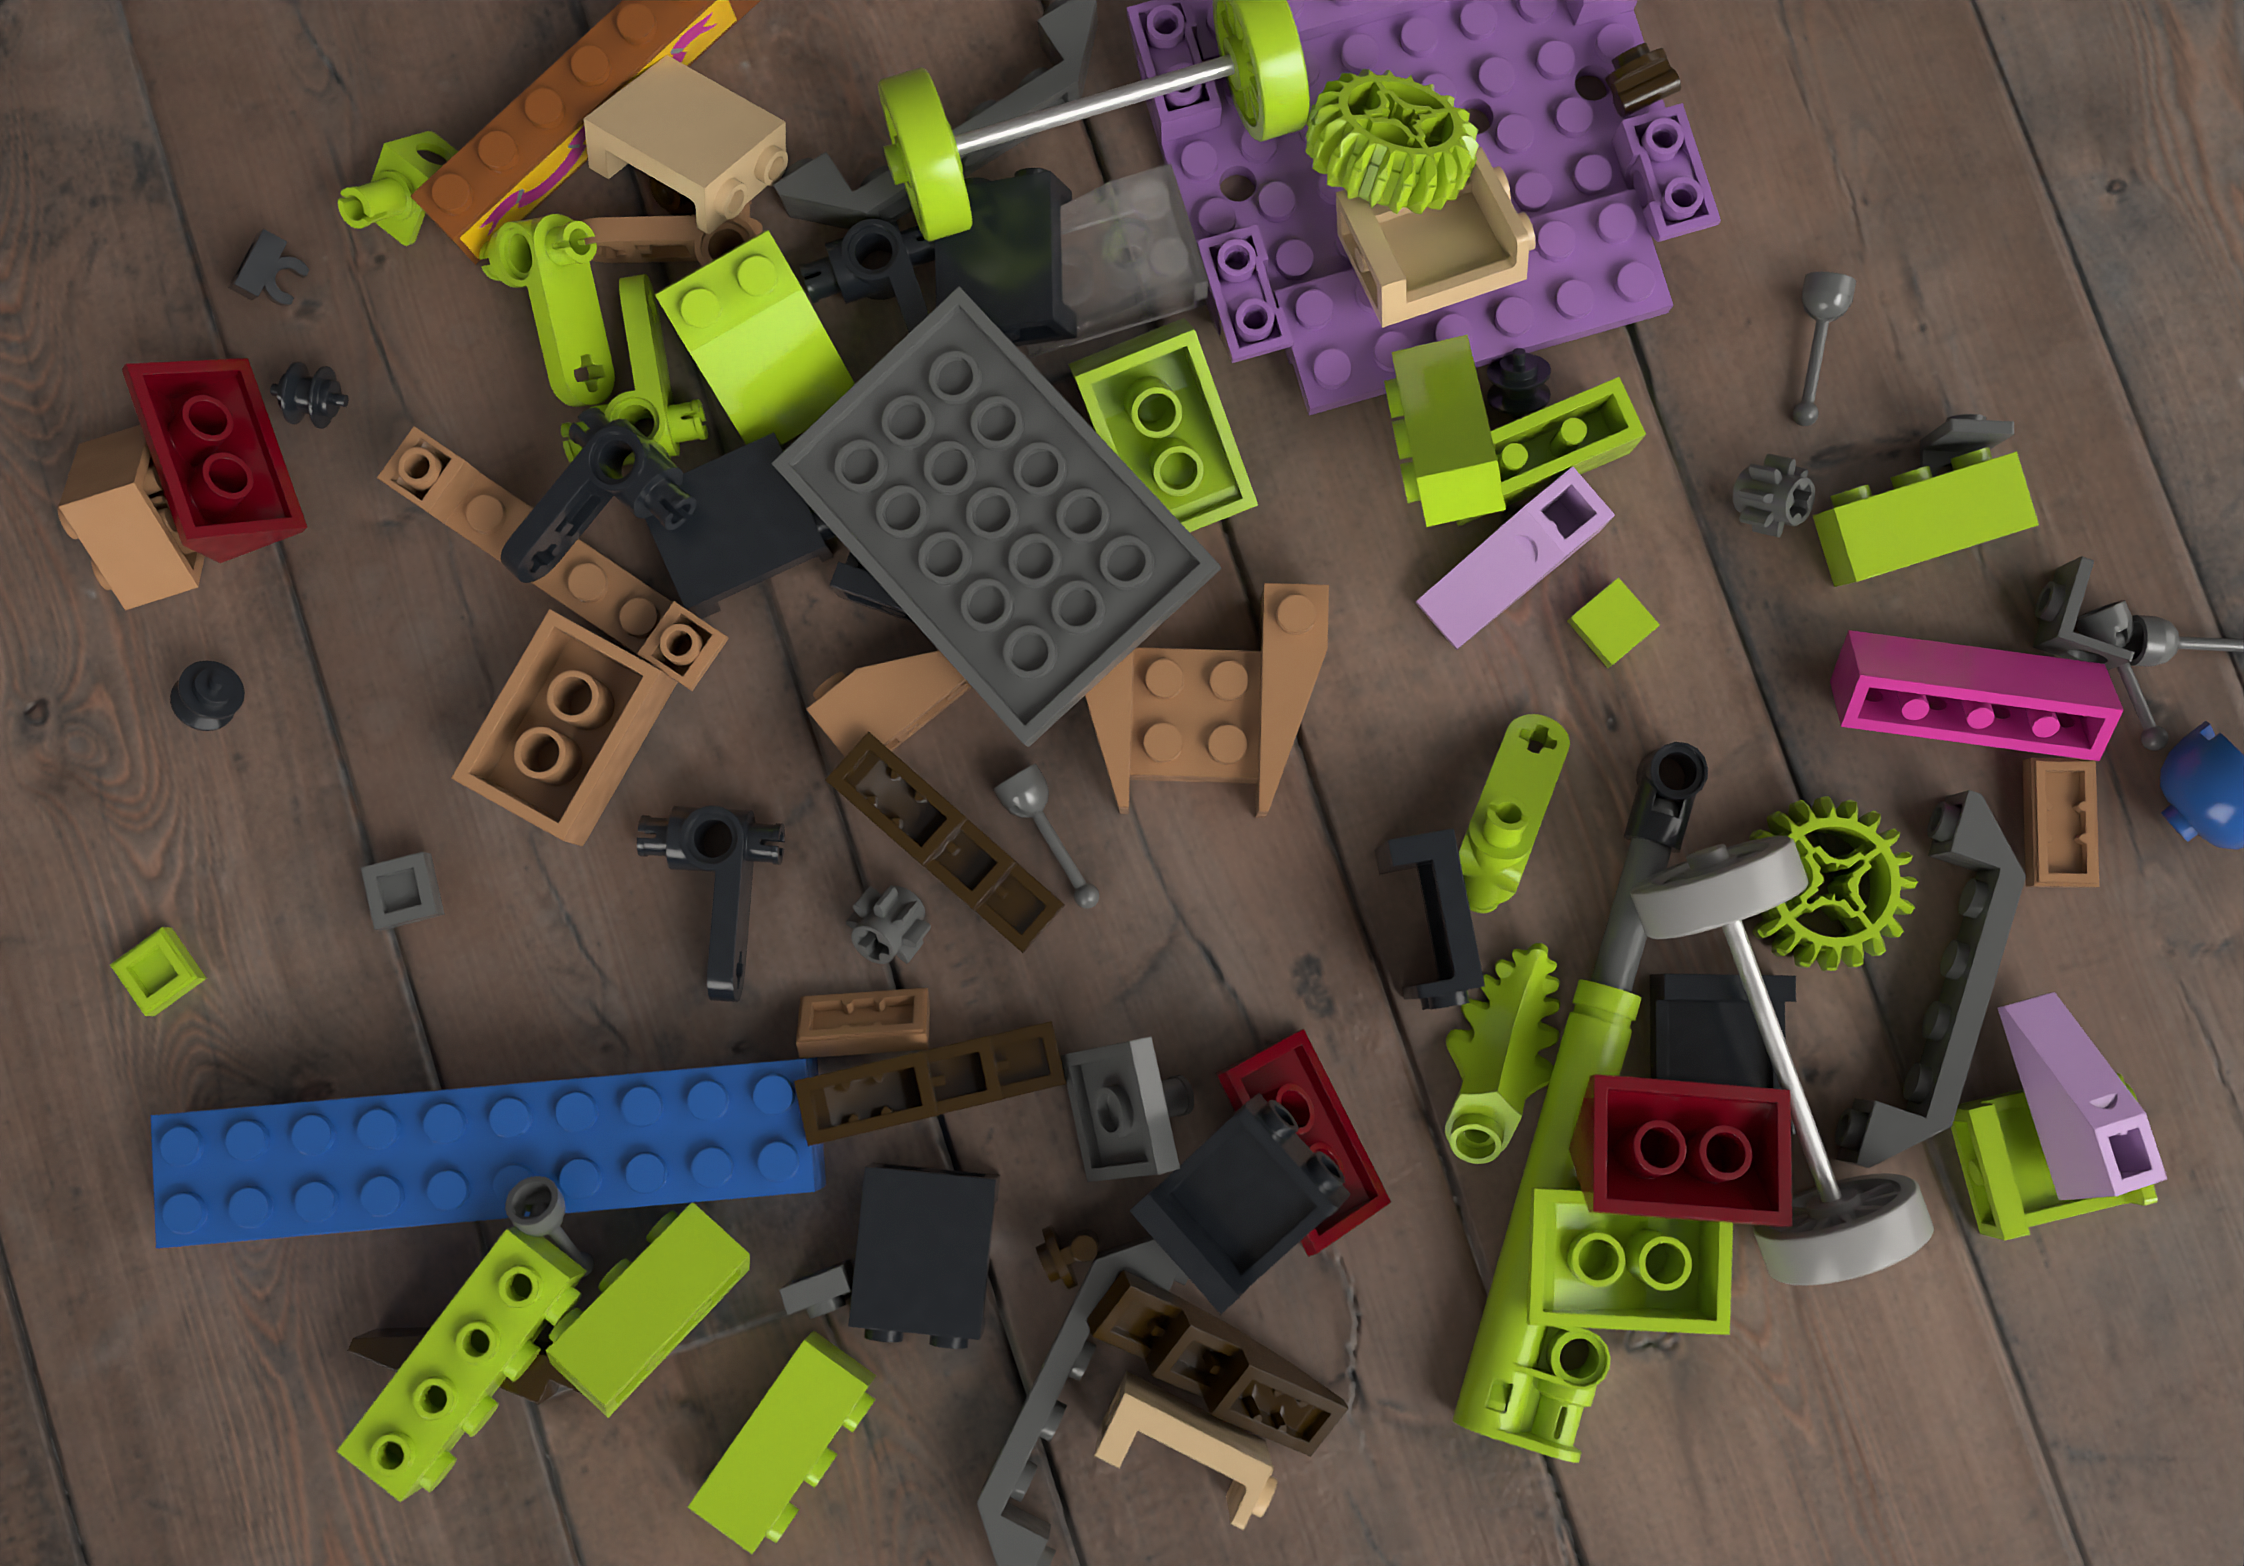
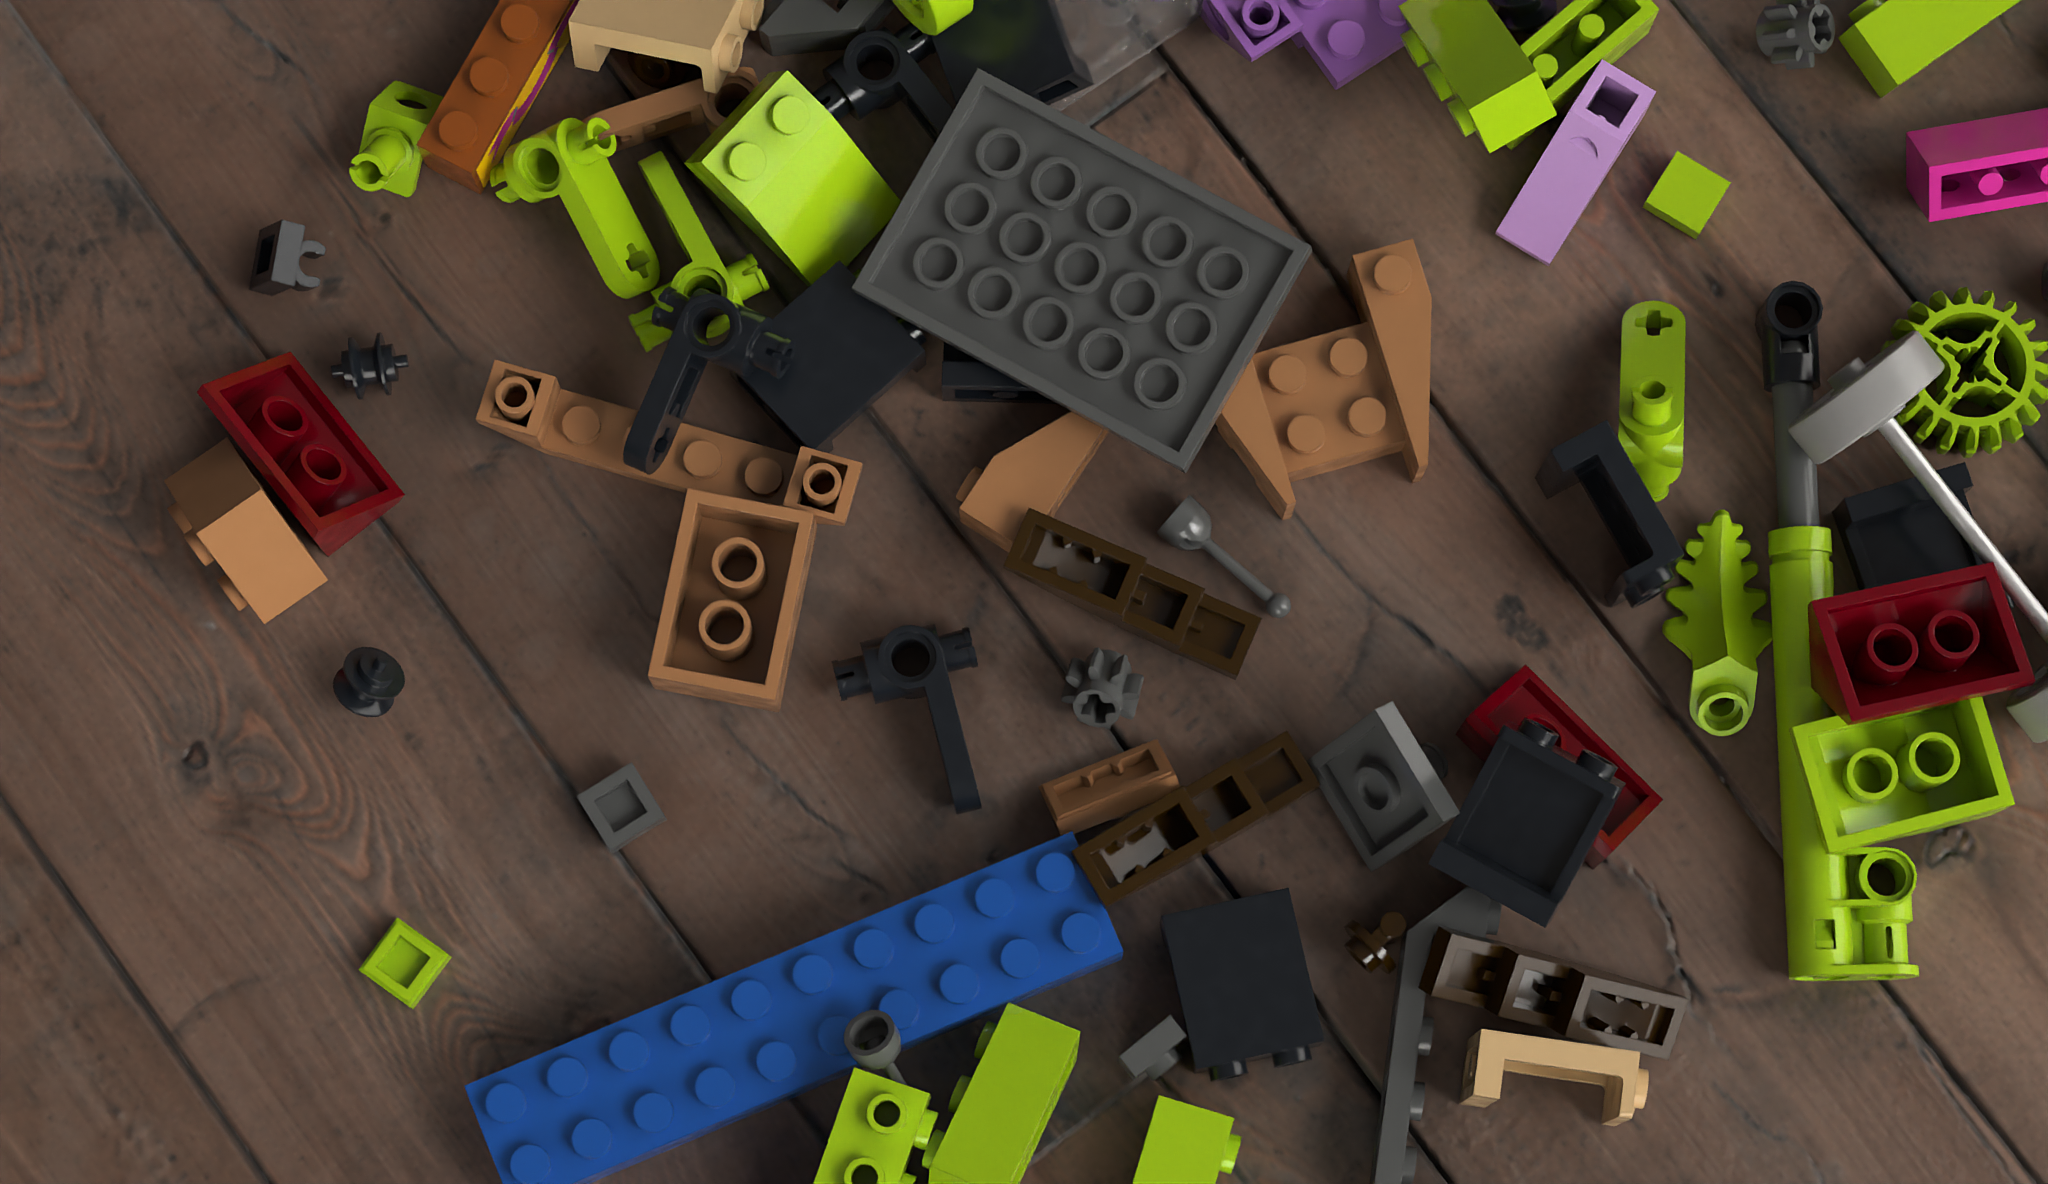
camera: 25 degrees left, 5 degrees down
(1167, 423) = (1205, 127): lime slope -> none

